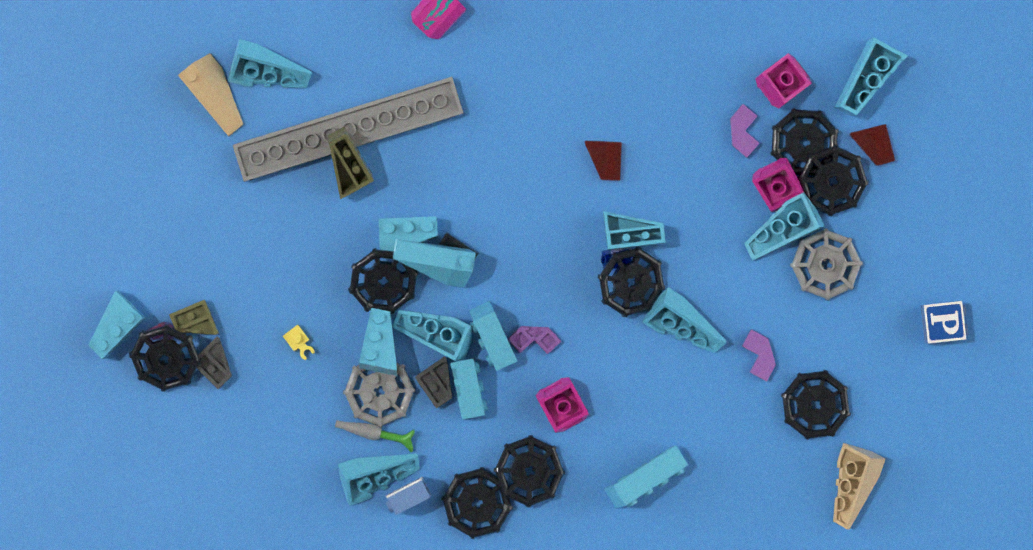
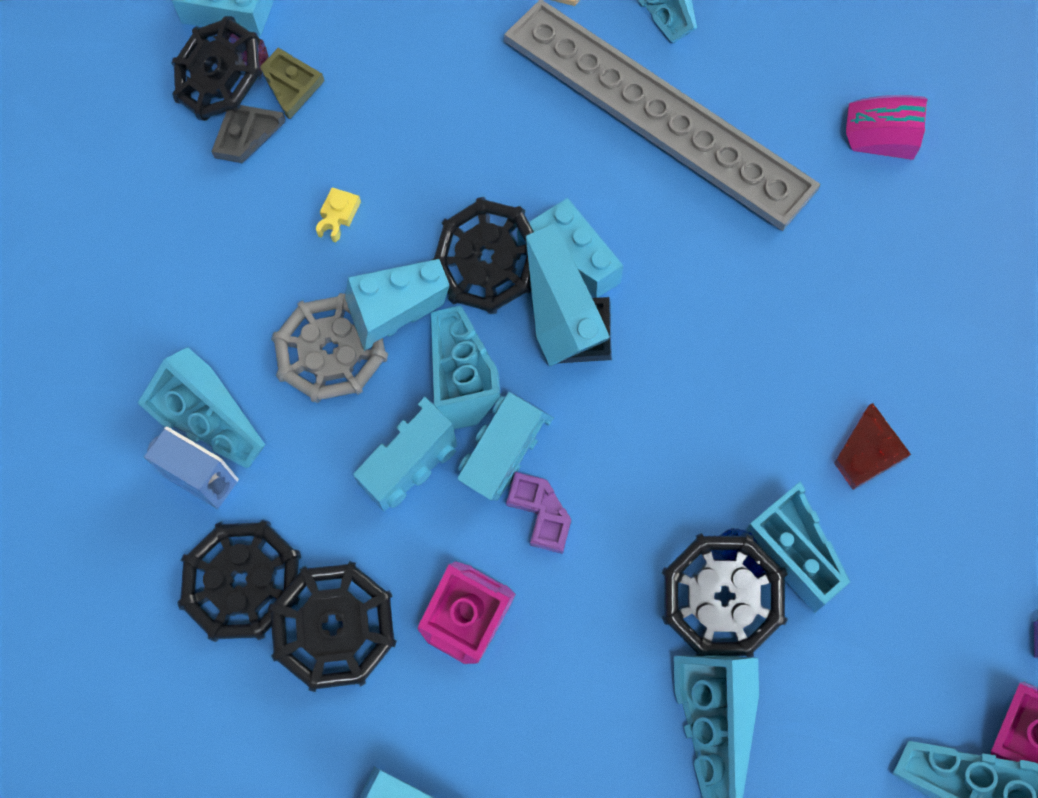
camera: 60 degrees right, 20 degrees down
(348, 163) = (615, 121): olive wedge -> none
(374, 432) = (265, 375): light grey piece -> none
(436, 382) = (384, 411): dark grey wing -> none

